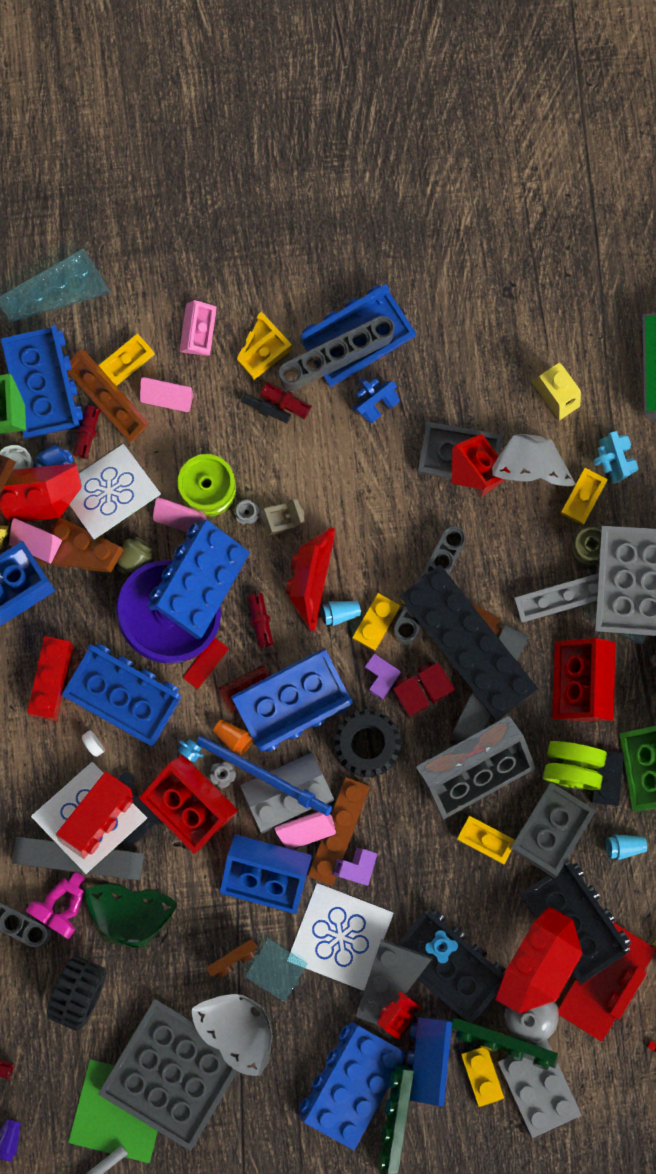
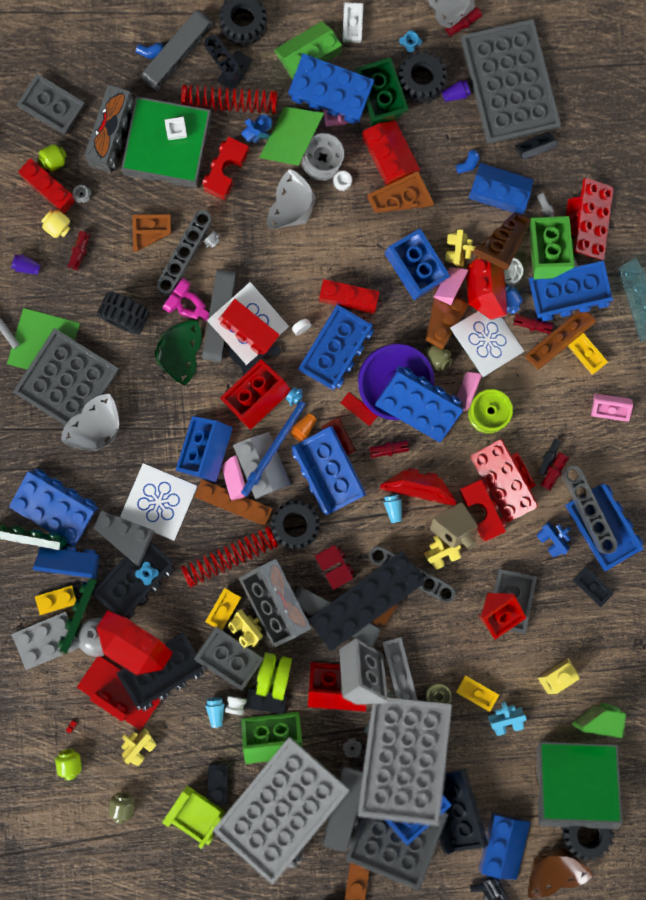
camera: 85 degrees right, 5 degrees up
(166, 394) = (560, 382): bright pink slope -> none
(223, 965) = (140, 418): reddish brown plate -> none
(229, 776) = (276, 424): light grey plate -> none
(246, 505) = (475, 440): light grey plate -> none
(263, 347) = (596, 455): yellow wing -> none
(276, 970) = (136, 455): clear light blue piece -> none
(283, 517) = (465, 467): dark tan bracket -> none
(299, 463) = (506, 479): none -> bracket
(359, 481) = (478, 494): none -> red arch
(359, 870) = (204, 516): medium lavender piece -> none
(364, 526) = (455, 527): none -> dark tan torso
(376, 622) = (385, 534): yellow plate -> none
(380, 779) = (191, 583): none -> red piece
(385, 674) = (345, 540): medium lavender piece -> none
(394, 547) = (439, 550): none -> light yellow hips
(398, 1016) = (97, 539): red plate -> none
(437, 349) = (592, 586): none -> black plate
(510, 804) = (249, 628): none -> light yellow hips
(534, 454) = (508, 656): light grey piece -> none
(566, 645) = (362, 674): none -> light grey slope
(612, 333) = (602, 720): none -> bright green slope
(616, 818) = (236, 705): none -> white wheel

